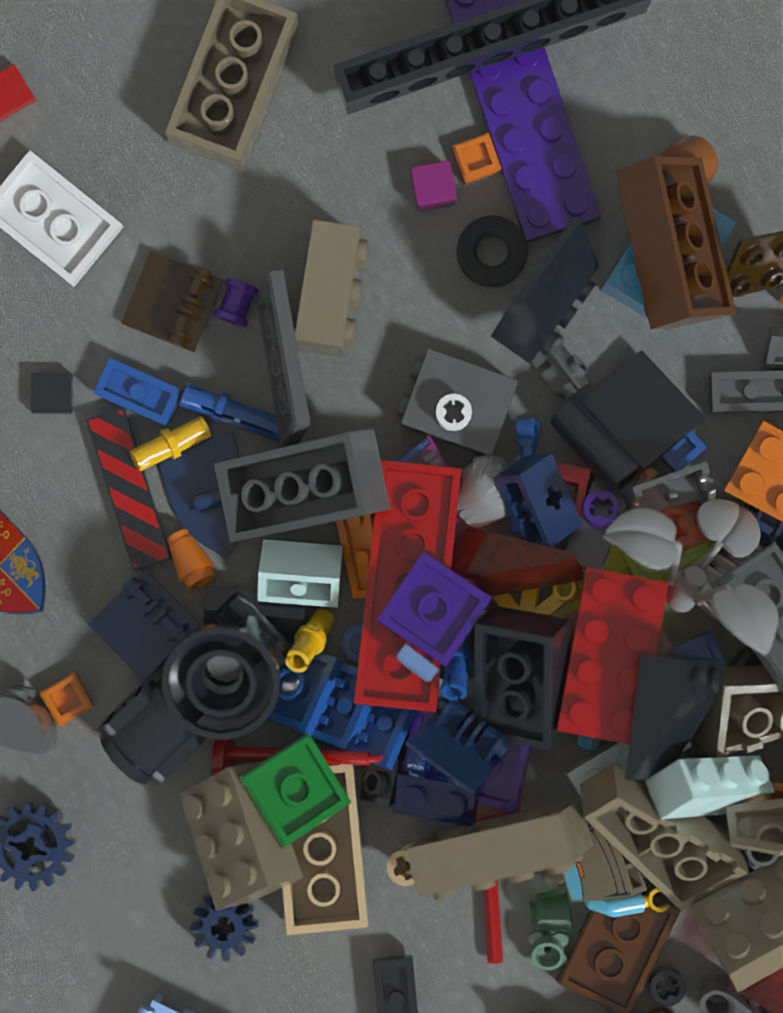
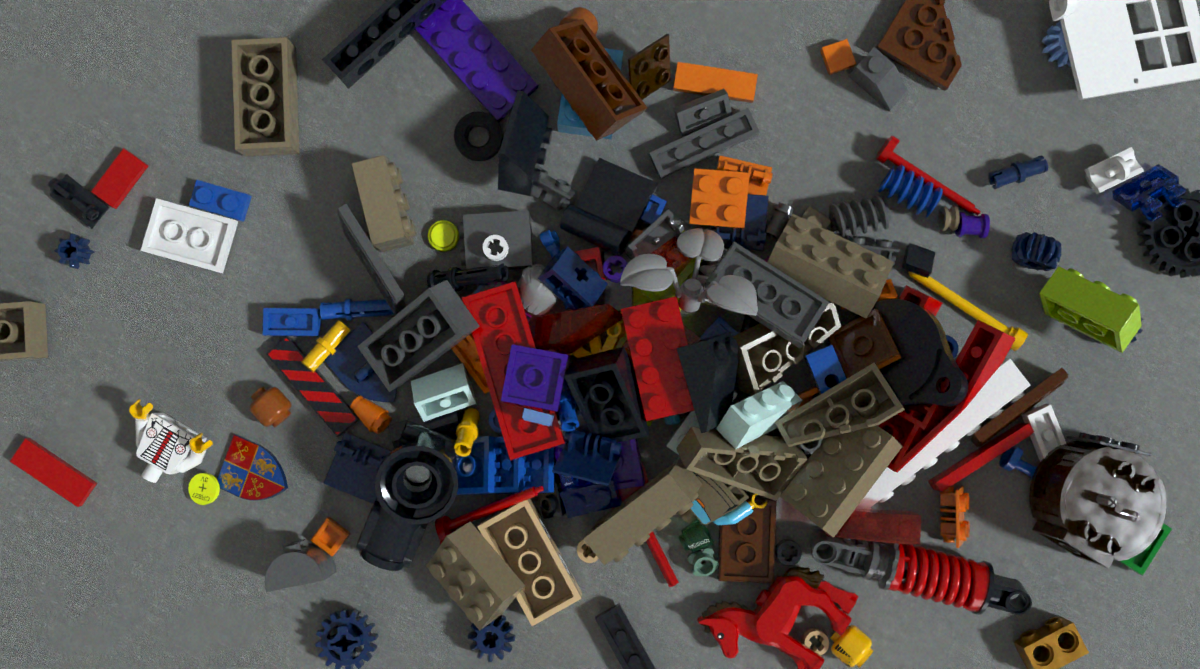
camera: 20 degrees left, 0 degrees up
(51, 393) = (237, 346): black tile -> none
(62, 492) = (270, 406): none -> dark orange head
(111, 188) = (220, 200): none -> blue plate
(172, 301) = (289, 255): dark brown hinge -> none
(236, 302) = (329, 238): dark purple bush -> none
(294, 790) = (495, 532): green tile -> none
(387, 363) = (443, 235): none -> neon yellow piece
(398, 434) = (473, 276): none -> black pin
(433, 185) = (423, 110): magenta piece -> none
(476, 158) = (443, 82): orange tile -> none

